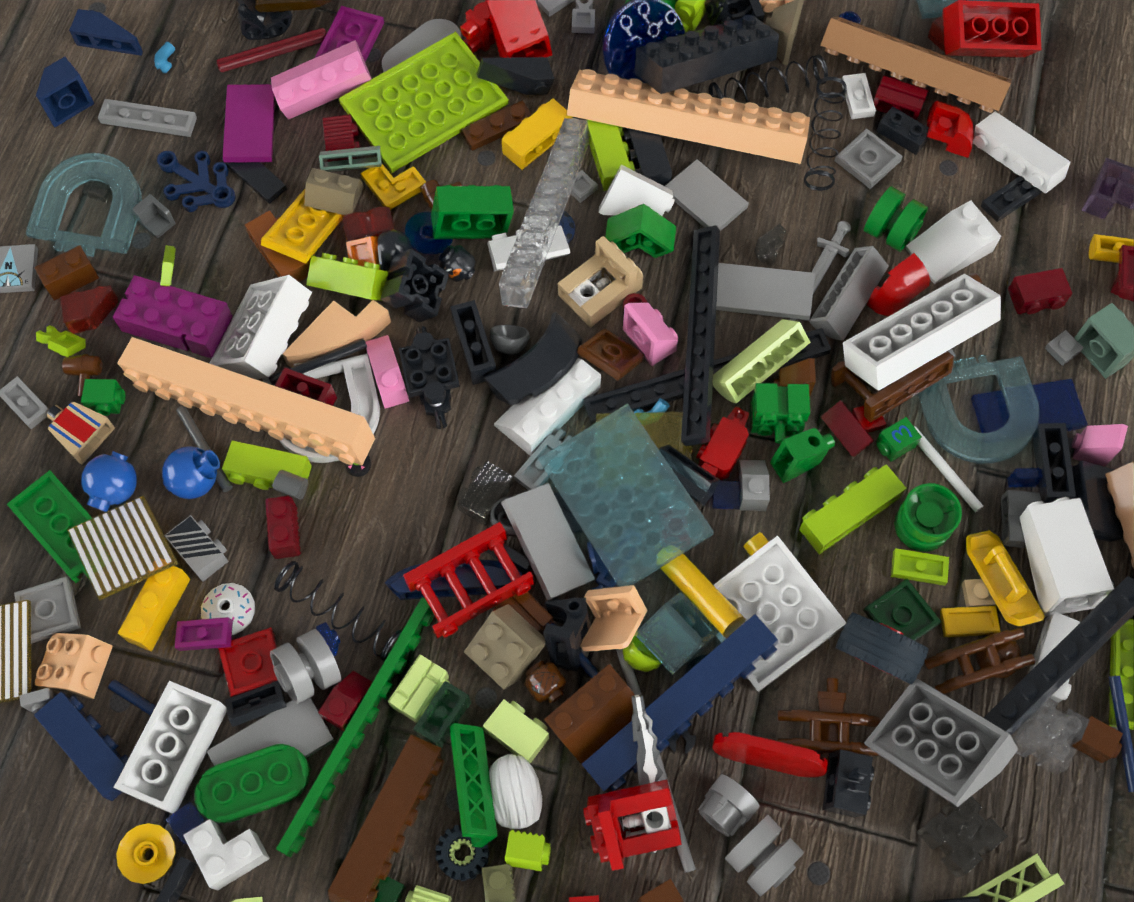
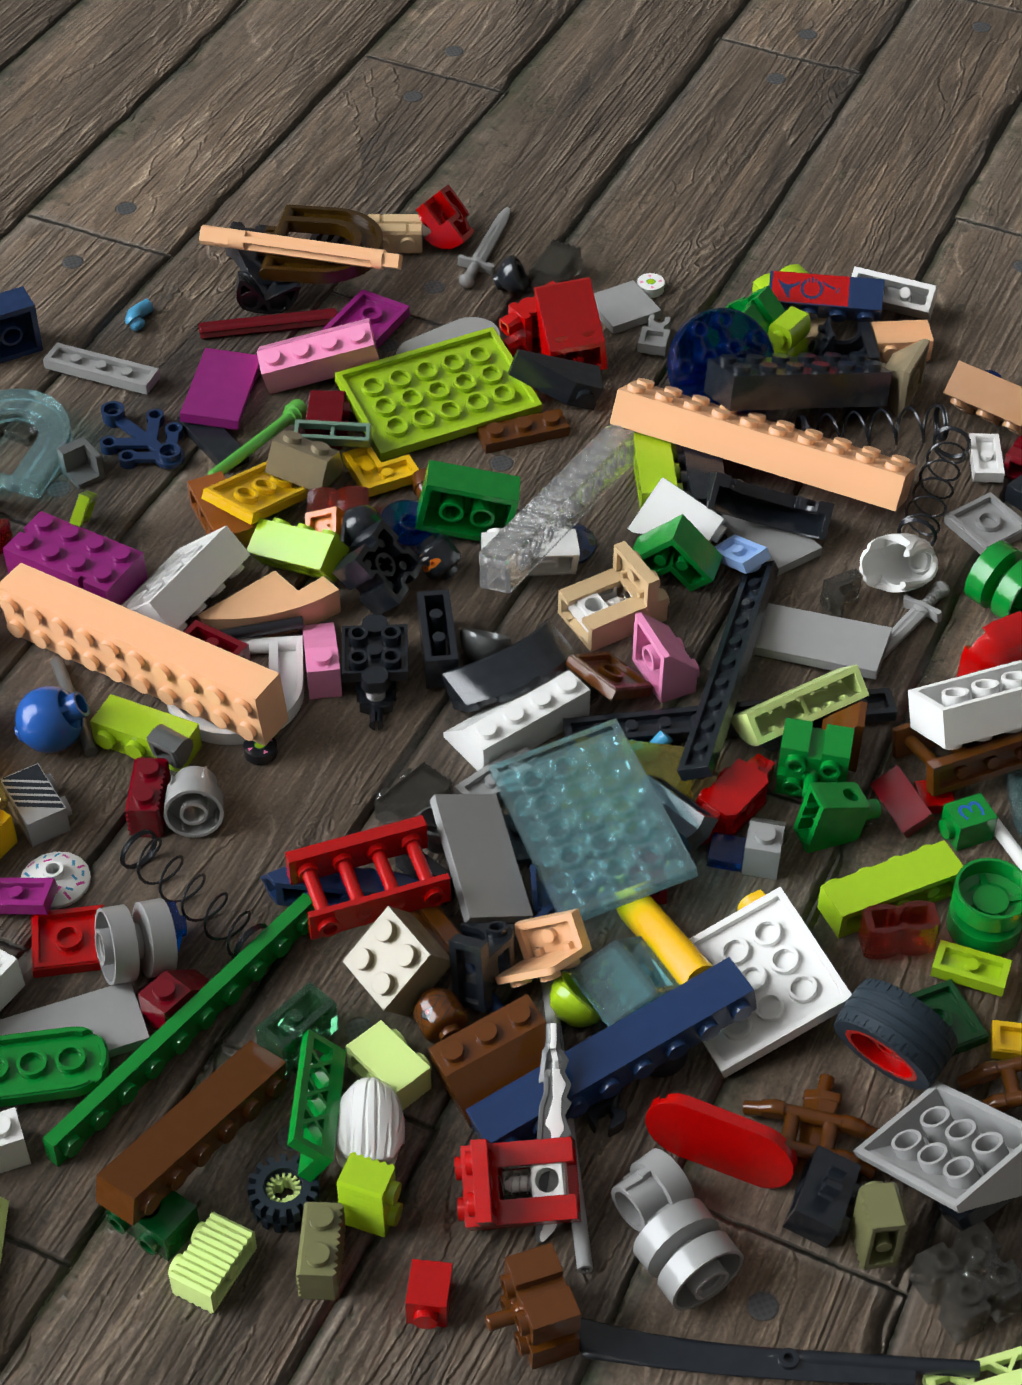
camera: 10 degrees right, 20 degrees down
(99, 32) = (73, 281): dark blue slope -> none
(256, 703) = (61, 982): black tile -> none
(313, 138) = (294, 410): none -> bright green piece
(319, 526) = (193, 802): none -> light grey piece
(418, 688) = (269, 993): yellowish green brick -> none
(534, 134) = (557, 445): yellow brick -> none
(583, 186) = (614, 505): light grey tile -> none
(690, 222) = (742, 554): none -> light blue plate
(704, 175) = (768, 506): none -> black windscreen
(812, 213) = (898, 562): none -> white hair
(849, 292) = (933, 656): light grey brick -> none
(867, 547) = (899, 929): none -> clear red brick
(893, 803) = (878, 1225): none -> olive brick

